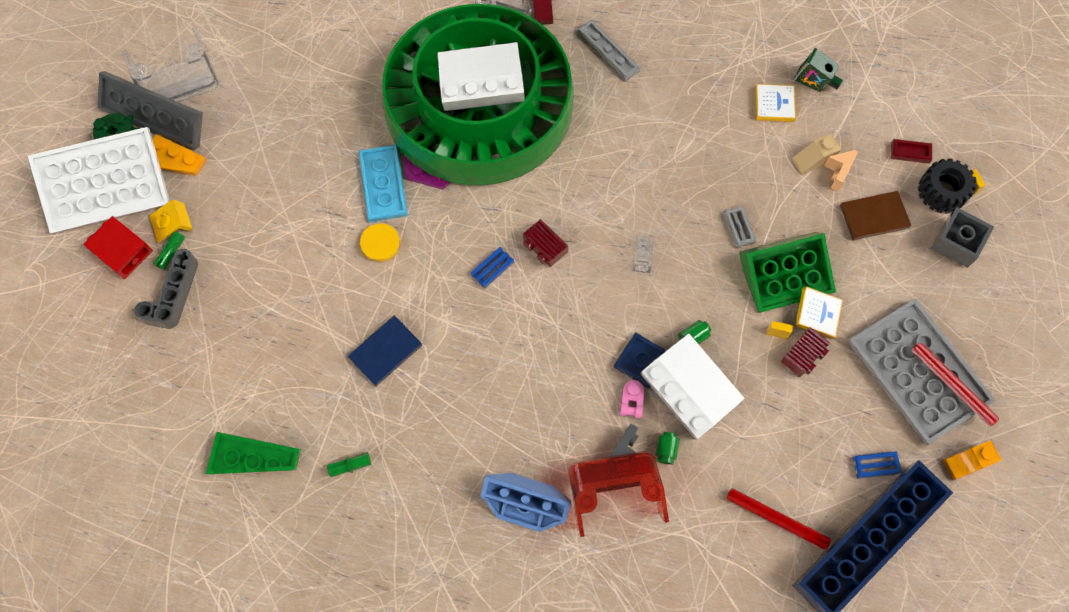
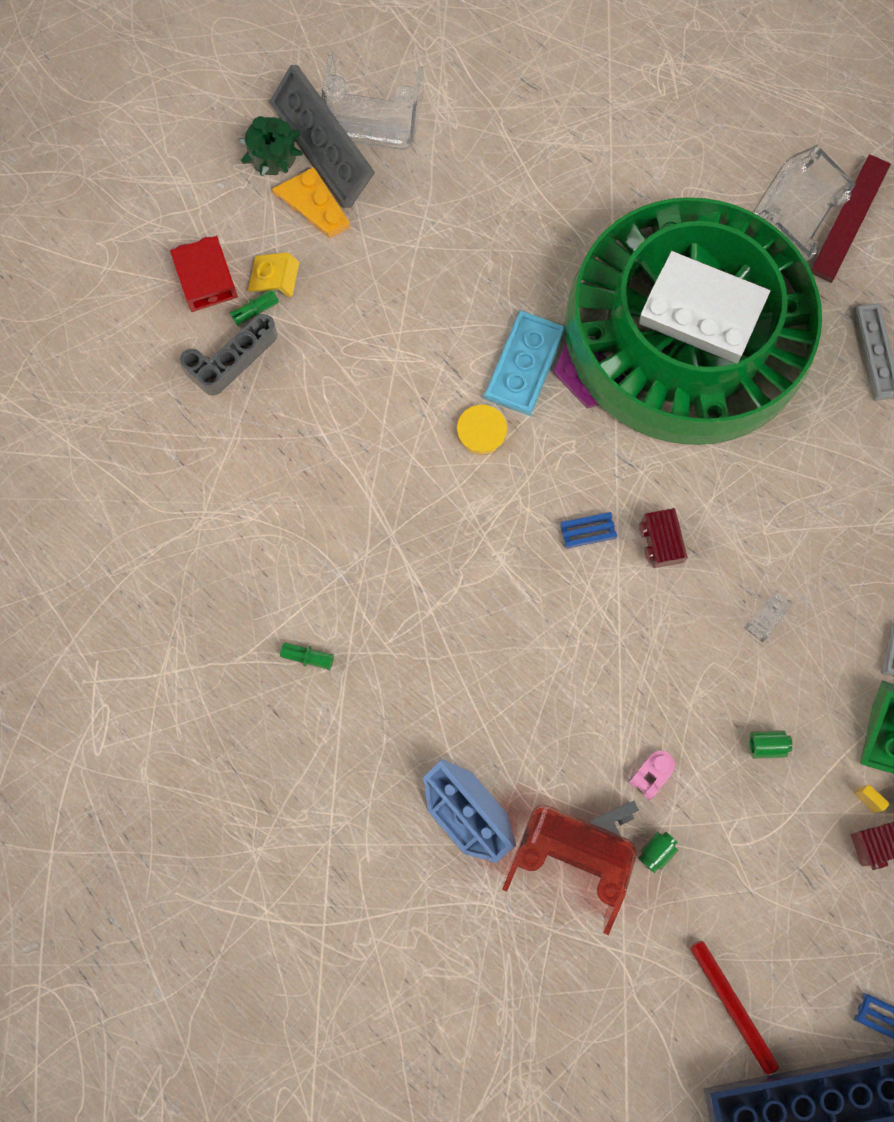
camera: 30 degrees right, 5 degrees up
(99, 180) = (225, 187): white plate -> none
(248, 455) = (205, 578): green wing -> none
(385, 350) = (416, 554): dark blue tile -> none
(637, 356) = (691, 736): dark blue tile -> none
(692, 386) = (729, 801): white slope -> none

